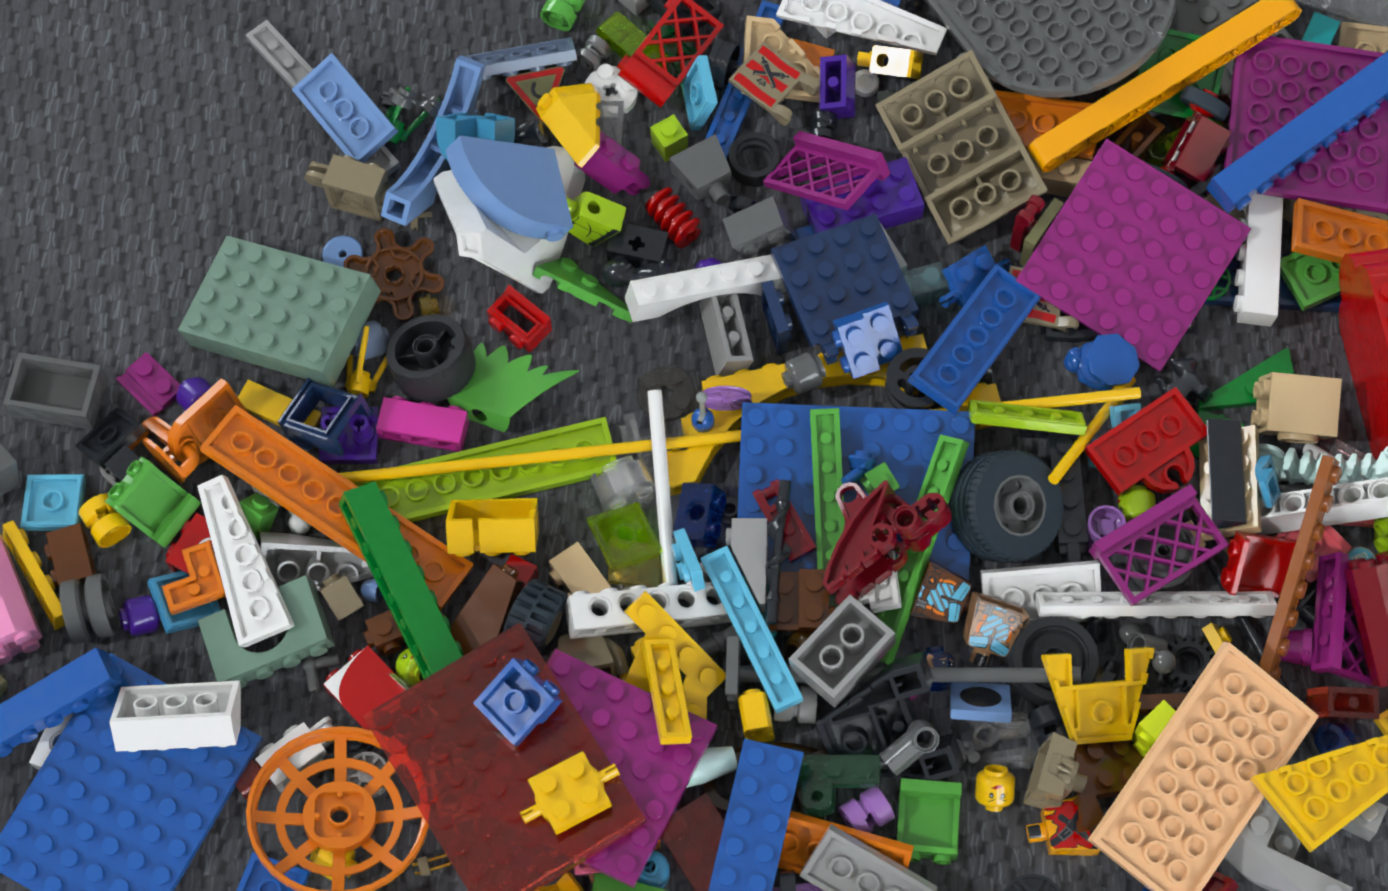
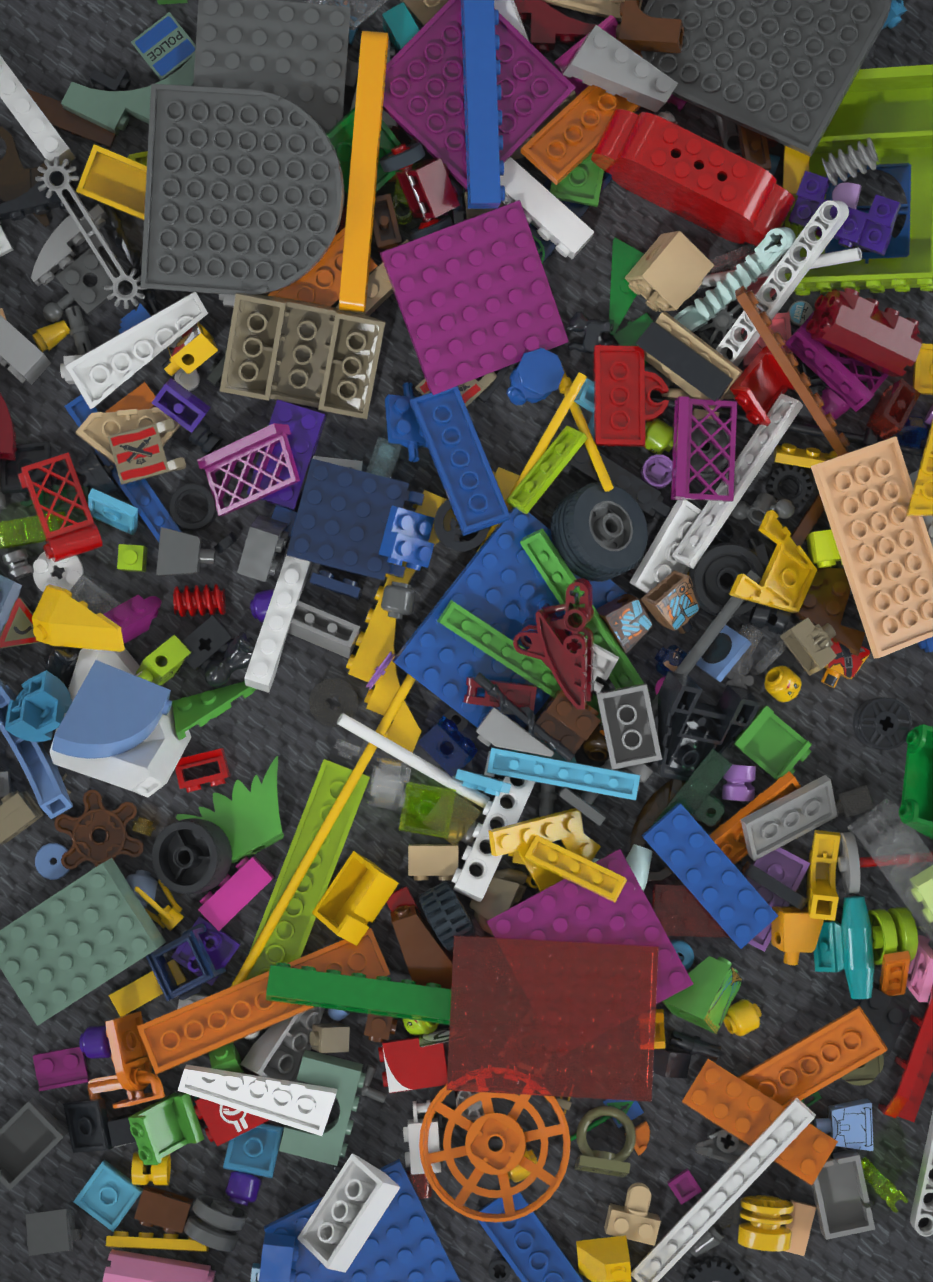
camera: 65 degrees left, 20 degrees up
(201, 586) = (255, 1132): orange tile -> none
(518, 700) = (517, 979): plate -> none
(569, 793) = (607, 988): yellow plate -> none
(702, 414) = (377, 695): blue hinge -> none
(756, 716) = (623, 811): yellow brick -> none
(860, 463) = (501, 611): blue plate -> none
(876, 476) = (522, 609): bright green brick -> none
(908, 749) = (723, 719): dark grey piece -> none
(1025, 221) = (395, 352): dark red plate -> none
(1039, 230) = (407, 346): olive tile -> none
(1267, 480) = (710, 339): dark azure slope -> none

